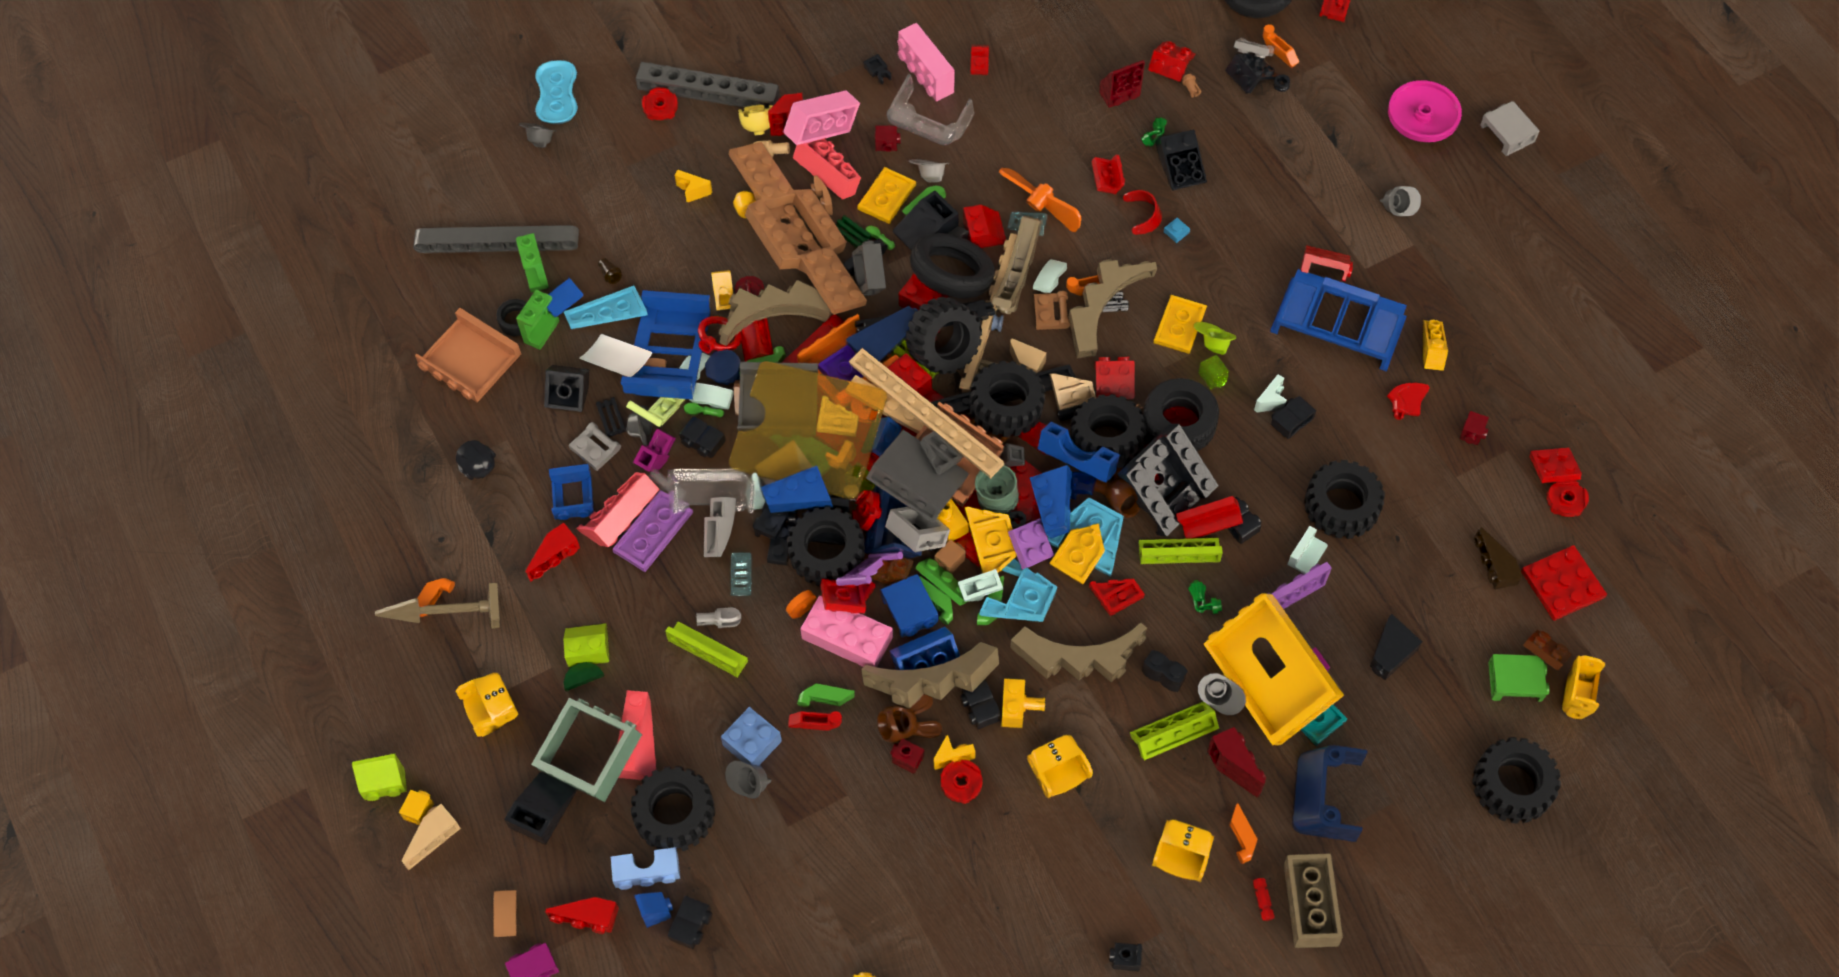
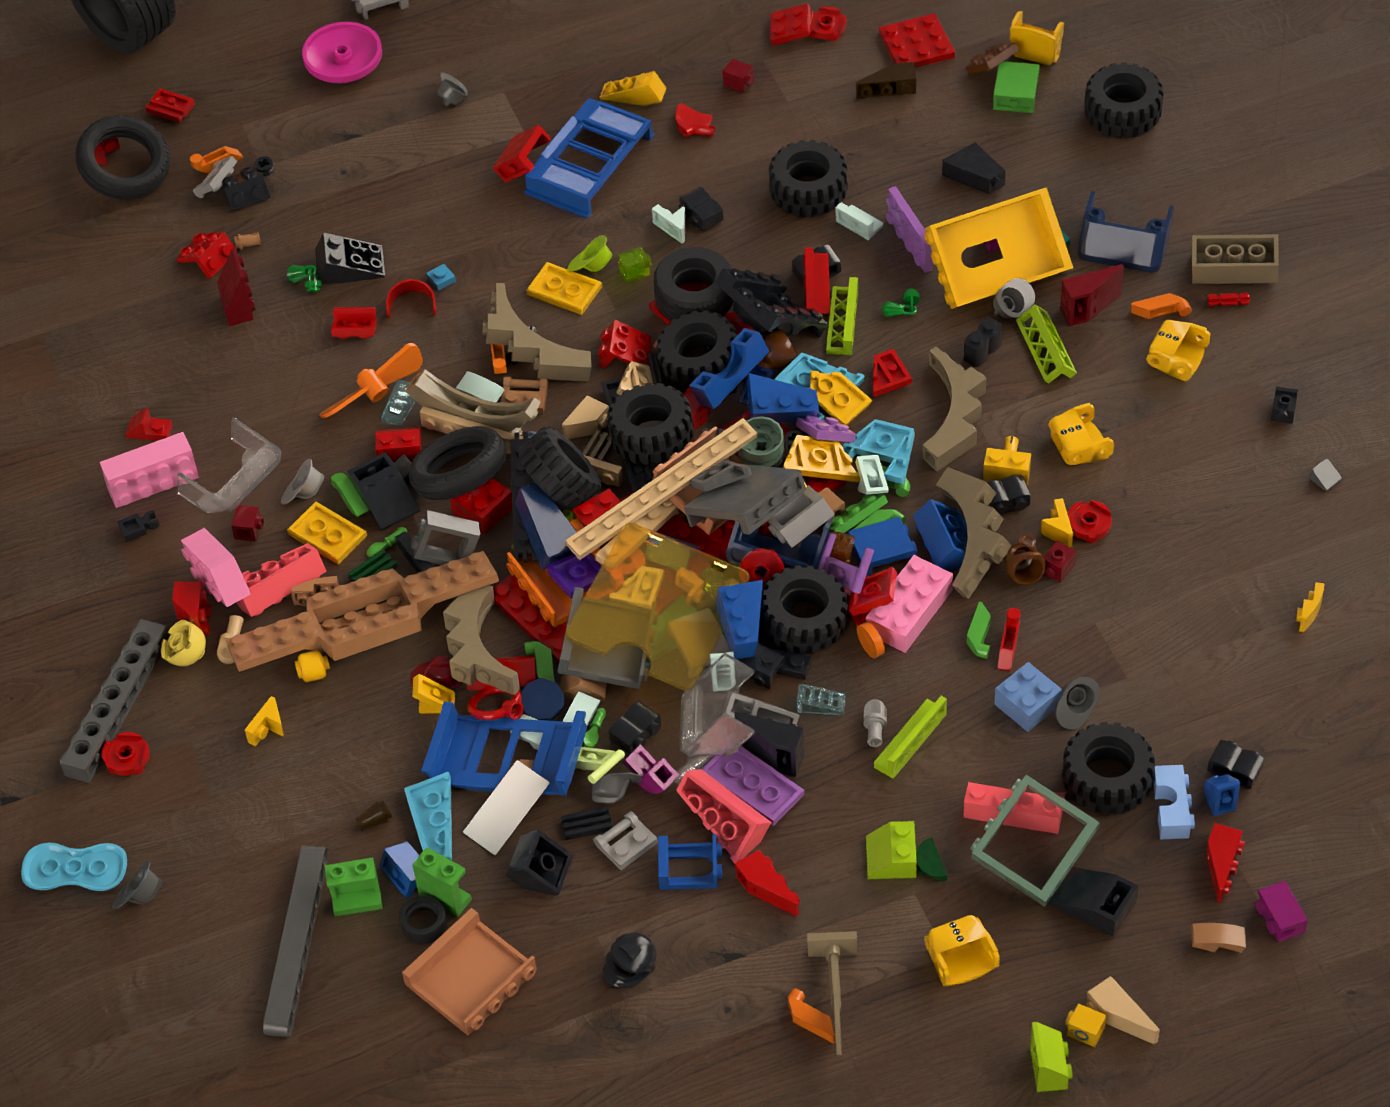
camera: 80 degrees left, 10 degrees down
(683, 537) = (774, 742): none -> black slope

